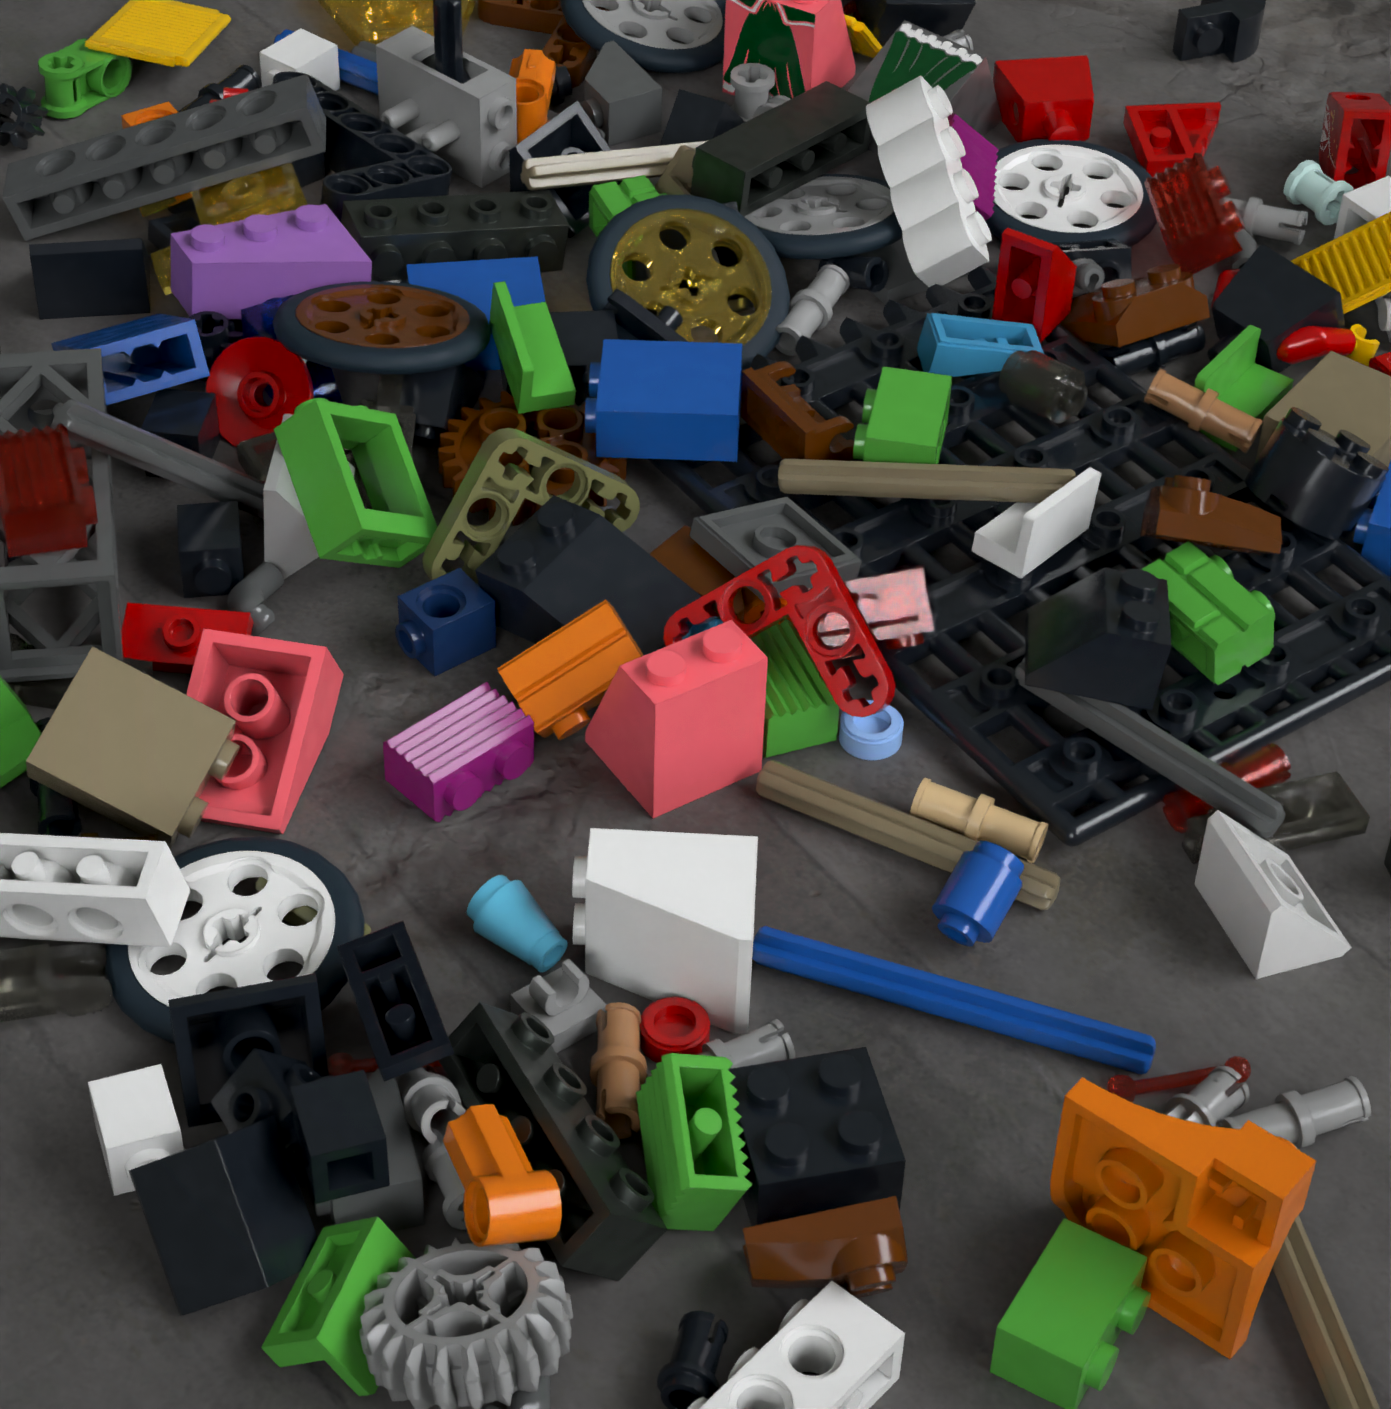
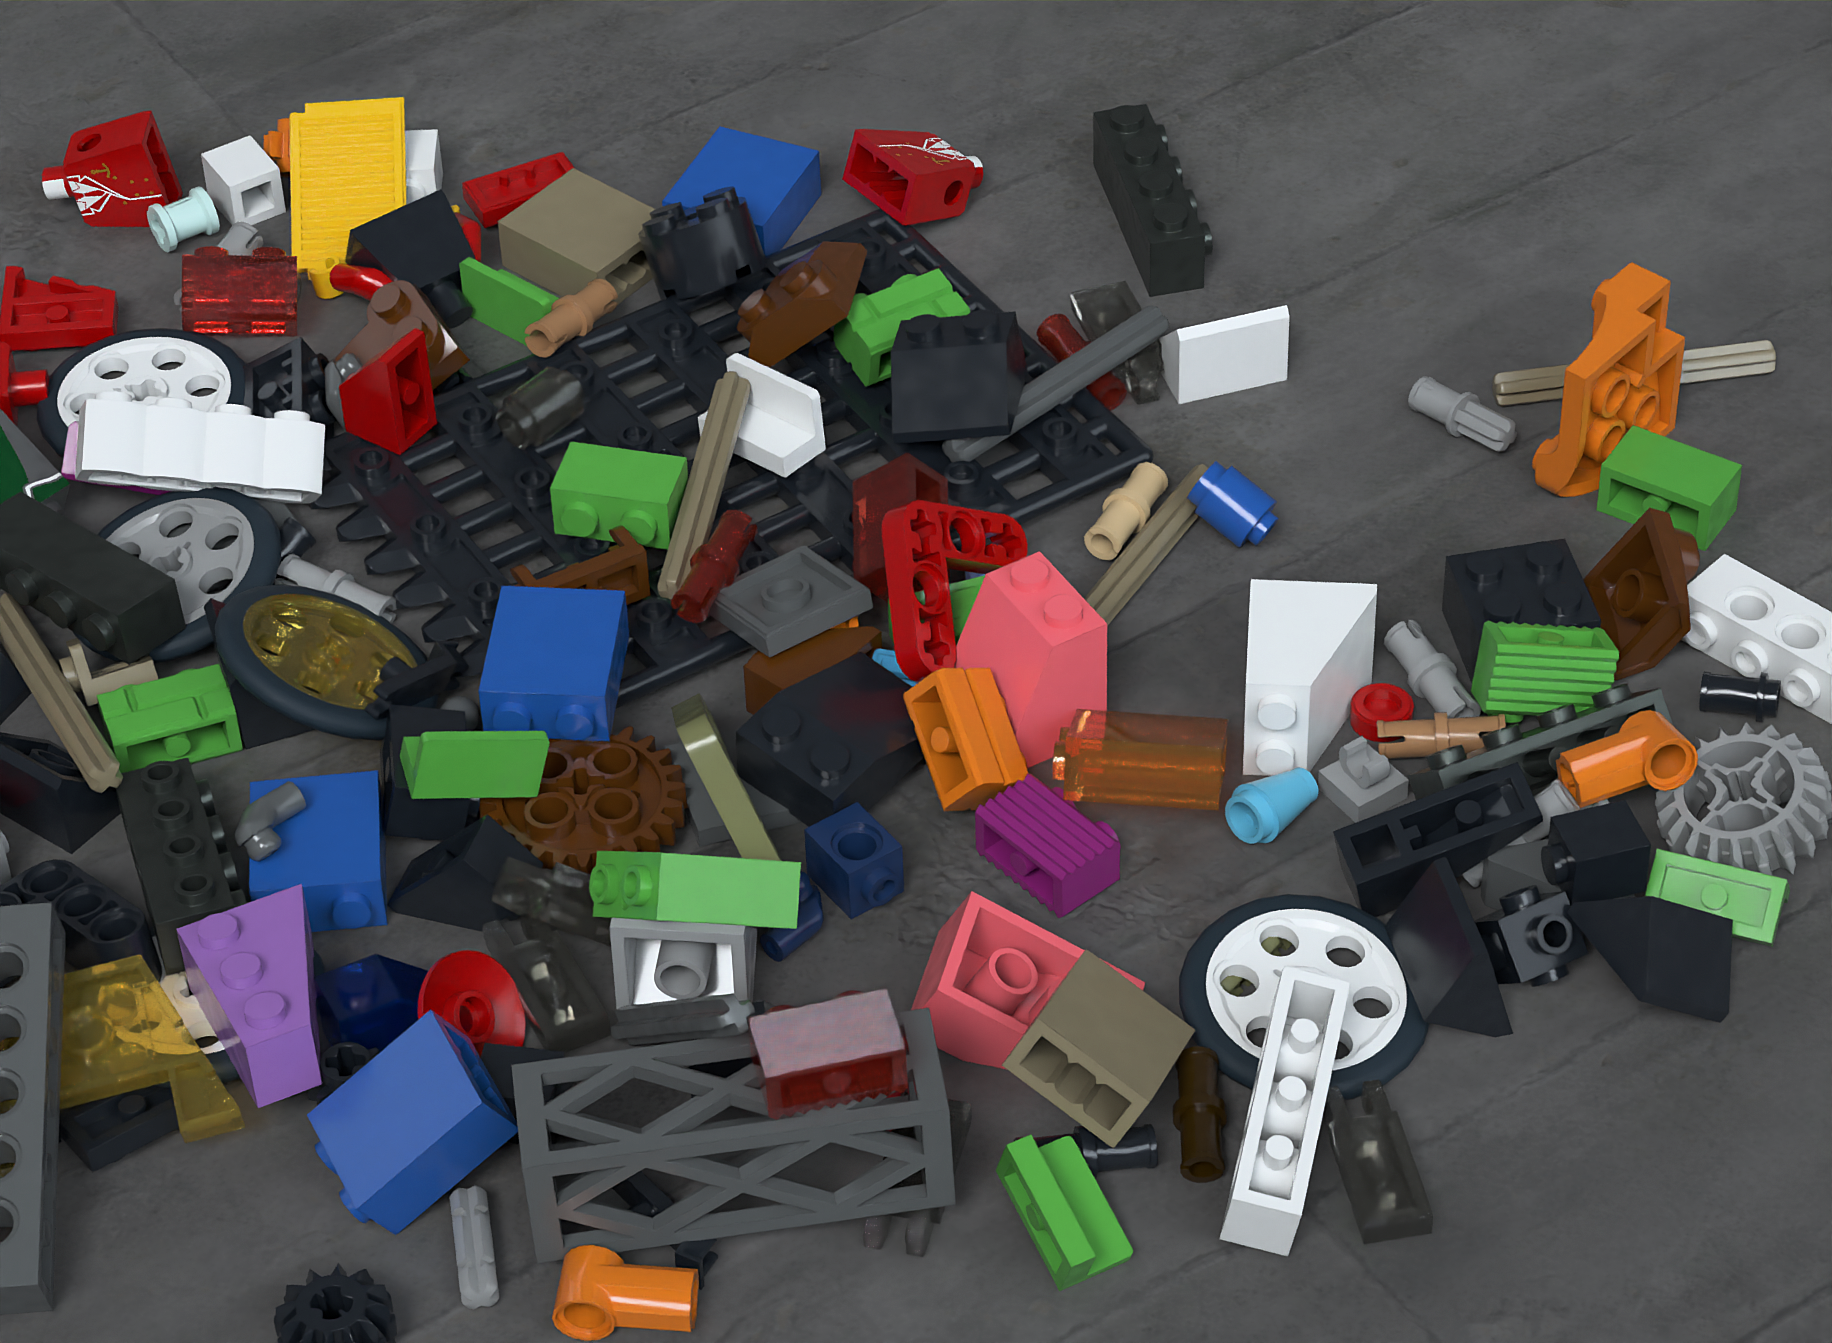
camera: 85 degrees left, 0 degrees up
(91, 278) = (177, 1208): black slope -> none
(134, 1122) = (1561, 1029): white brick -> none
(375, 595) = (781, 942): none -> dark blue arm
(382, 328) = (425, 874): wedge -> none
(476, 252) = (262, 815): none -> dark grey arm
(542, 795) = (1142, 759): none -> clear orange brick
(801, 485) = (714, 566): none -> clear red pin
(954, 1000) = (1355, 505): blue axle -> none
(970, 344) = (461, 462): dark azure slope -> none
(1127, 1088) = (1419, 457): clear red hinge -> none
(1310, 1114) = (1454, 357): light grey pin -> none

